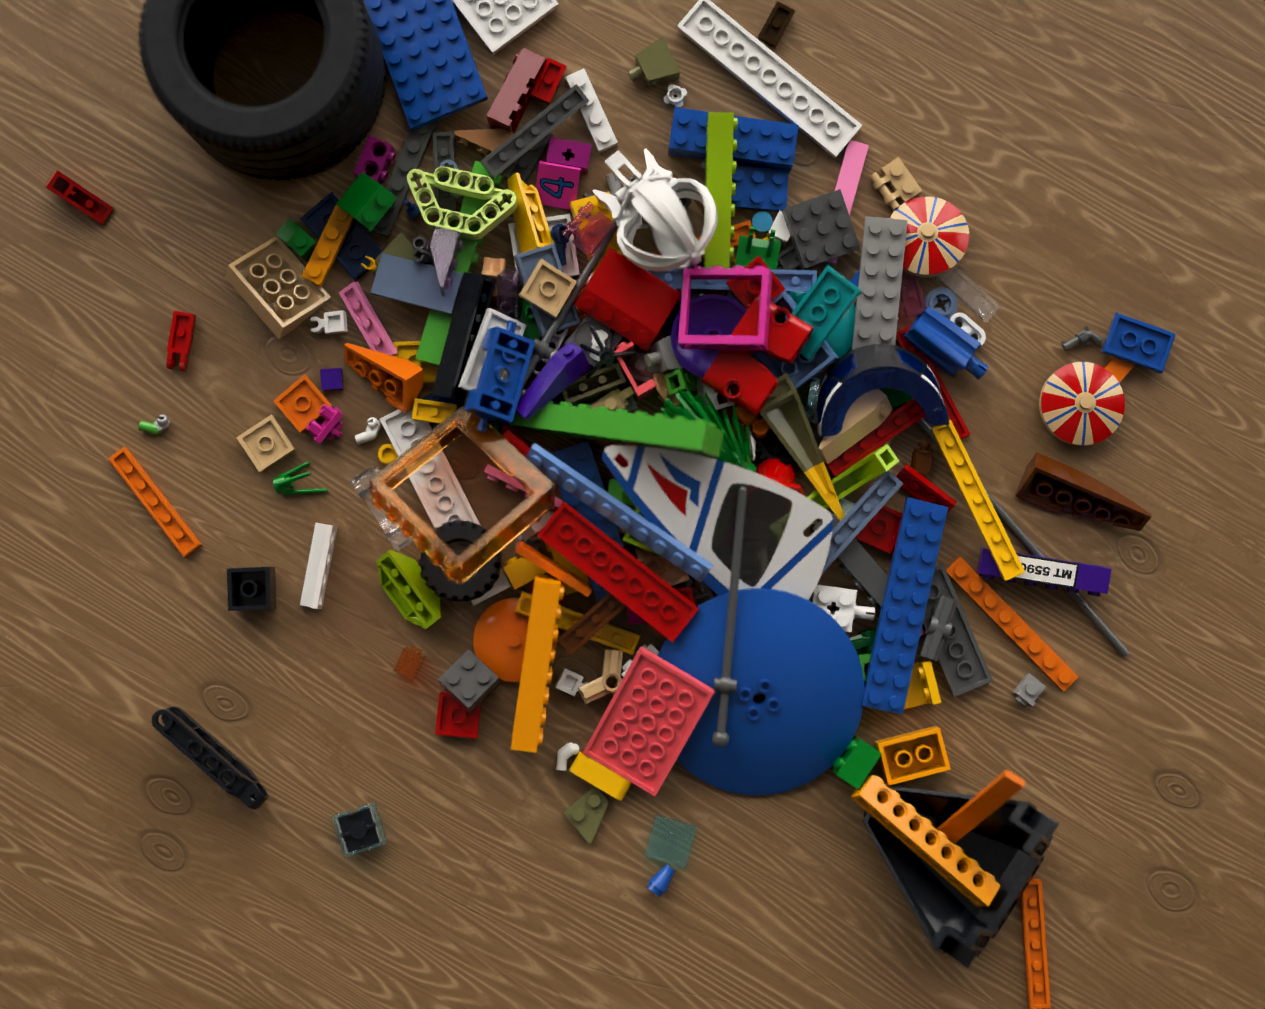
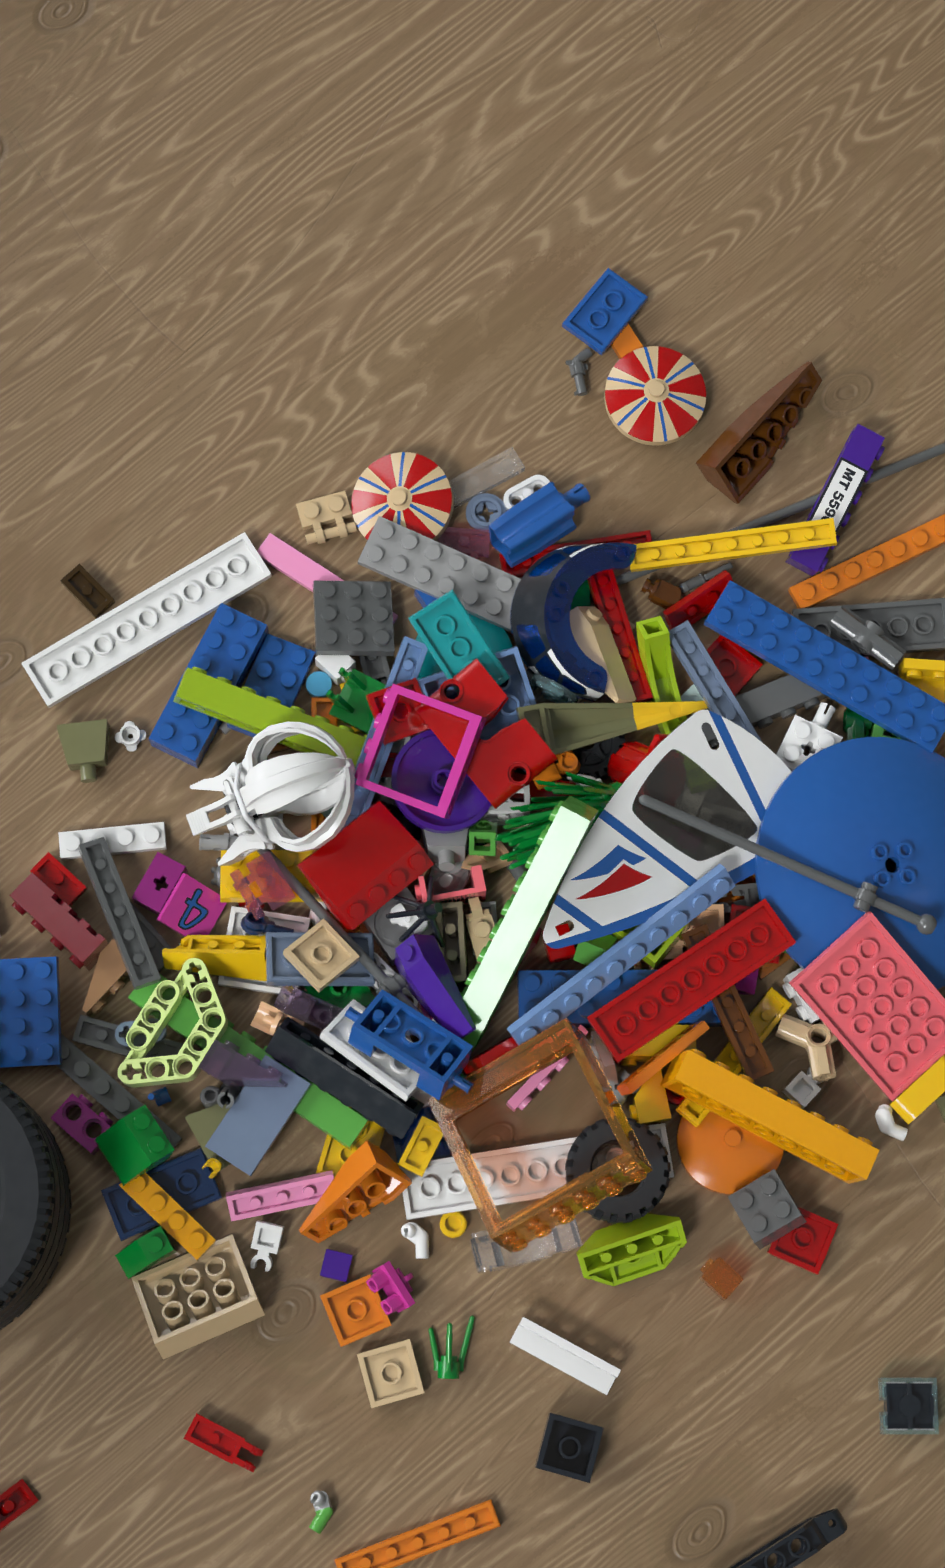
camera: 75 degrees left, 10 degrees down
(944, 486) = (701, 579): none -> dark grey piece

